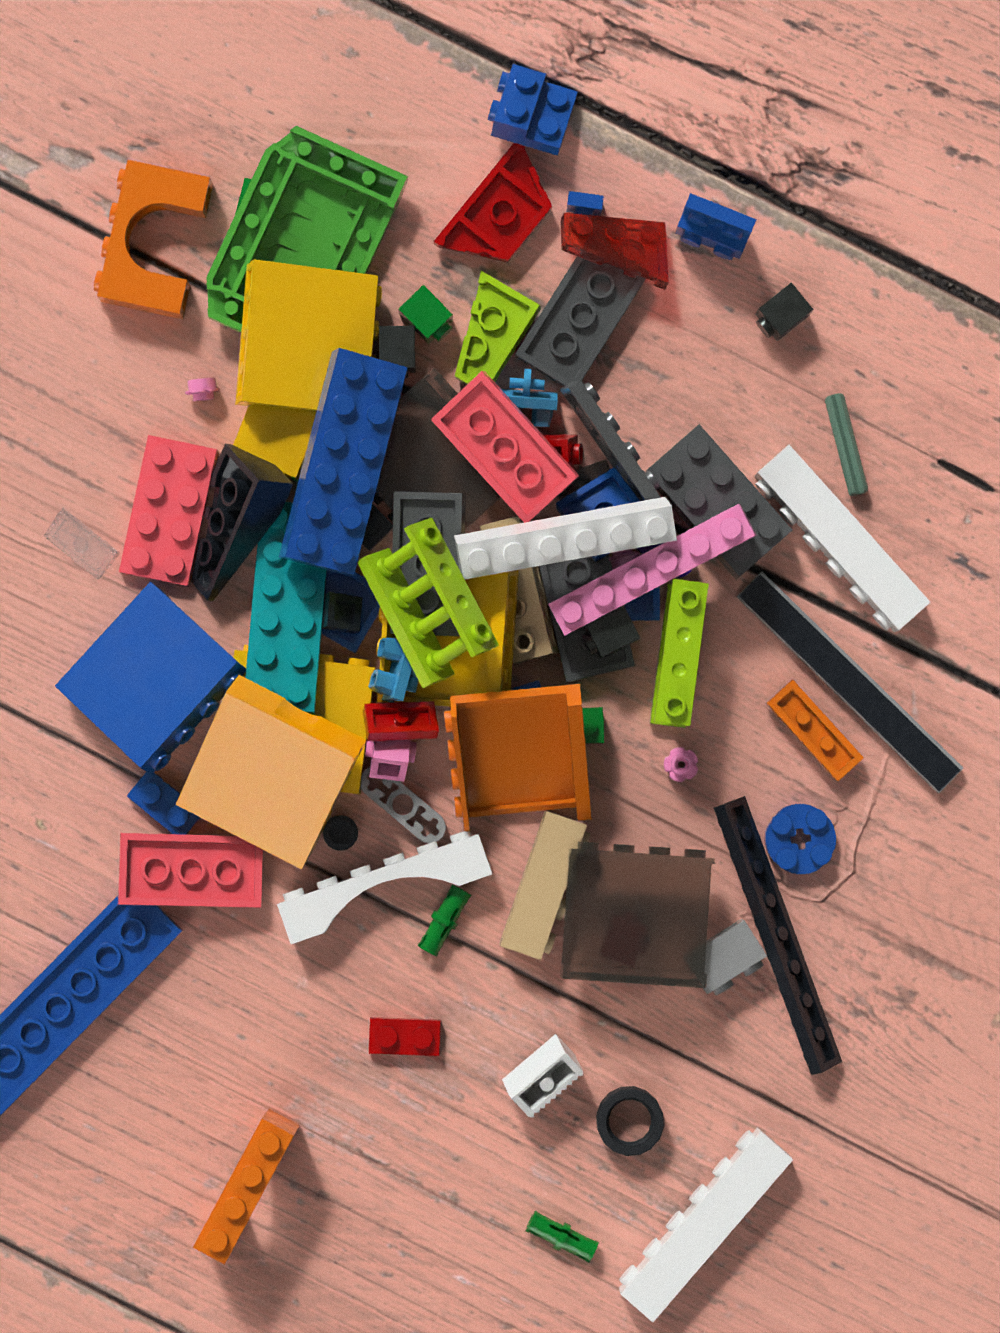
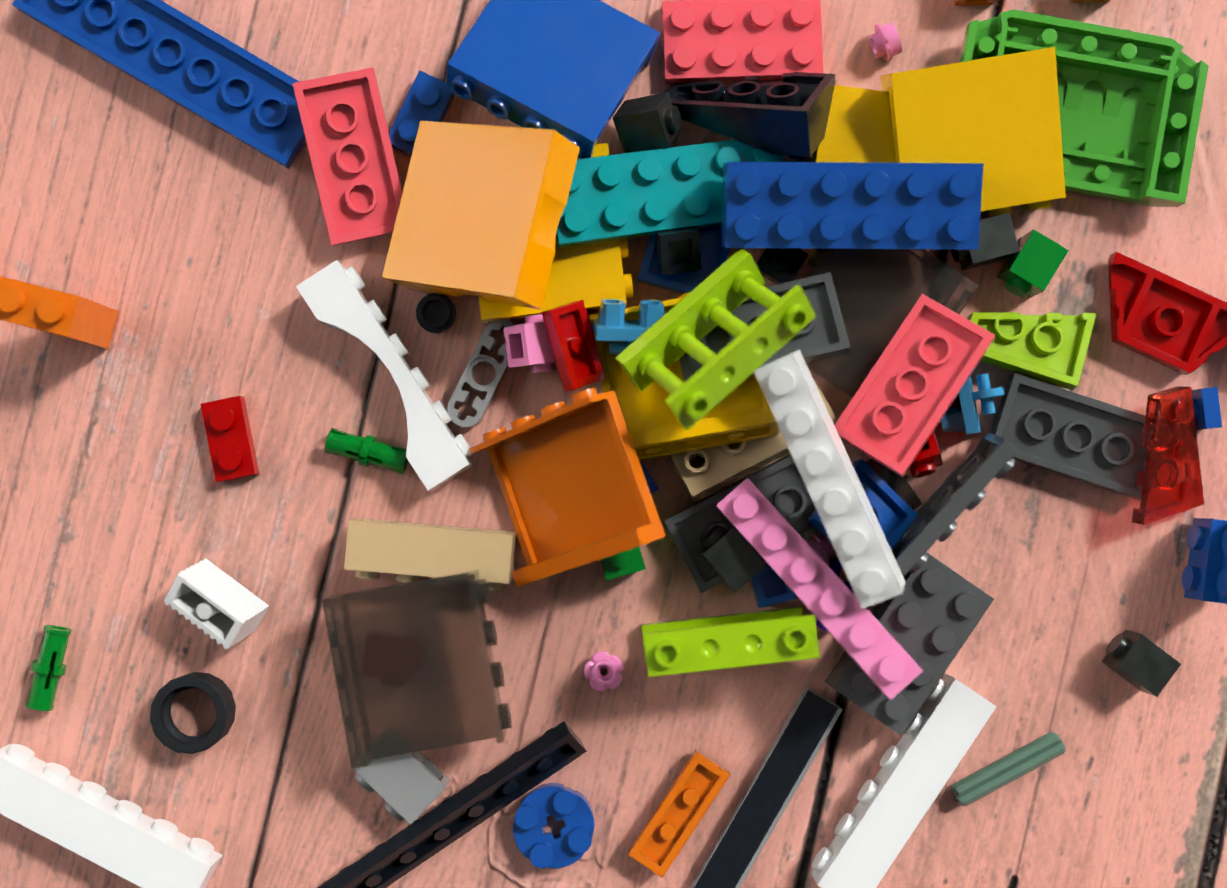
camera: 75 degrees right, 0 degrees up
(225, 612) = (647, 123): none -> pearl dark grey brick

